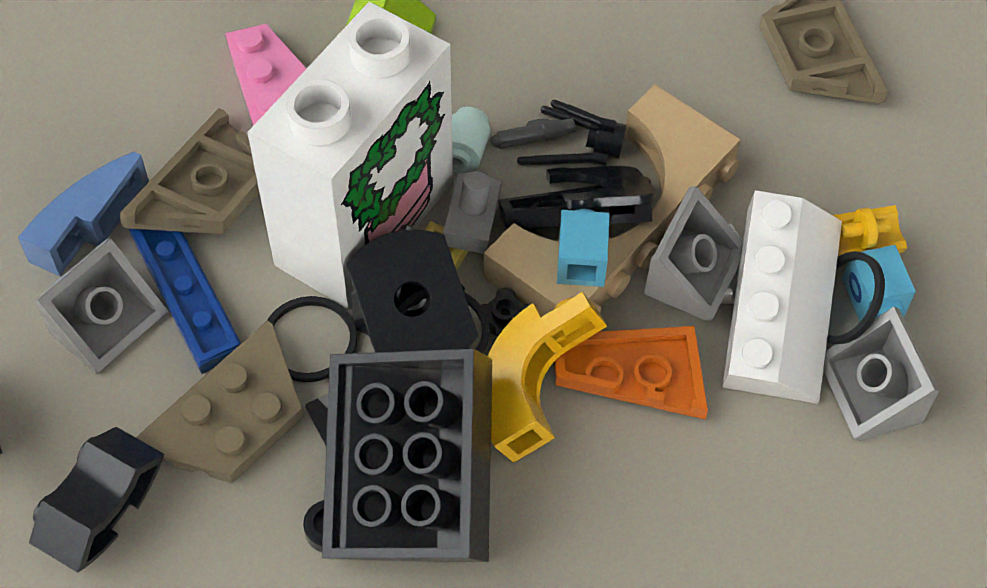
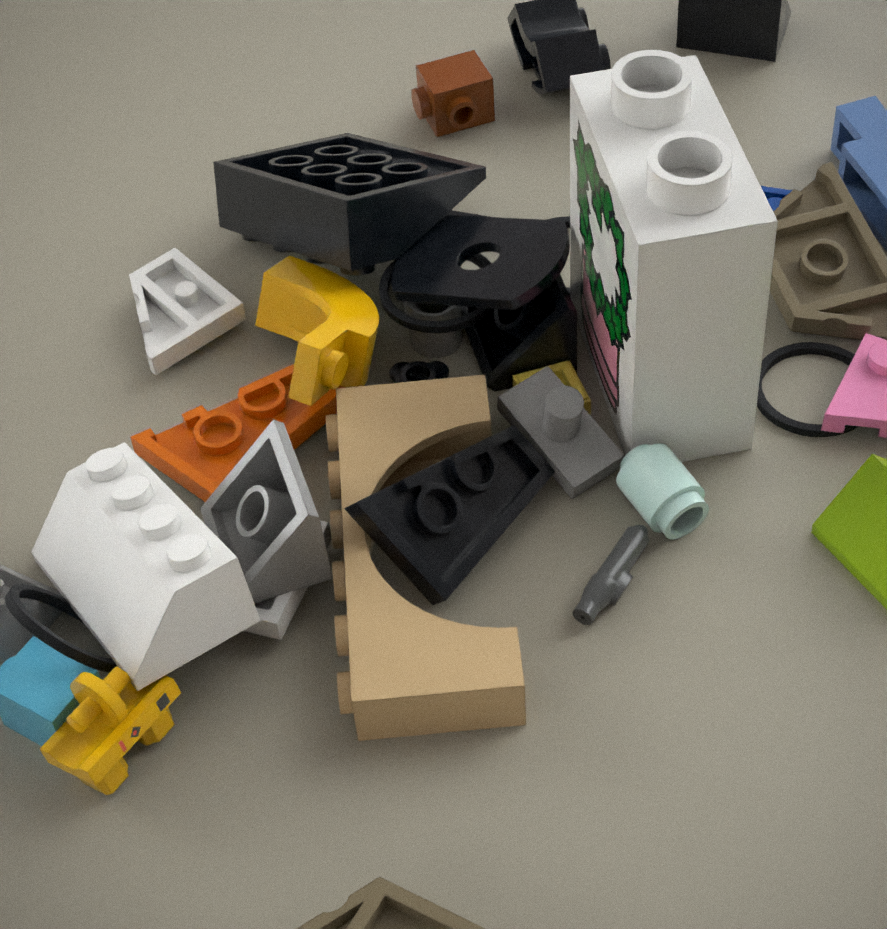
camera: 140 degrees right, 10 degrees down
(99, 306) = (762, 120): light grey slope -> none
(211, 526) = (454, 93): none -> dark orange brick
(230, 412) = (532, 163): dark tan wing -> none
(583, 247) = (379, 417): medium azure brick -> none
(586, 503) = (180, 308): none -> white wing
(604, 137) = (534, 612): black plant -> none
(621, 186) = (403, 521): black piece -> none

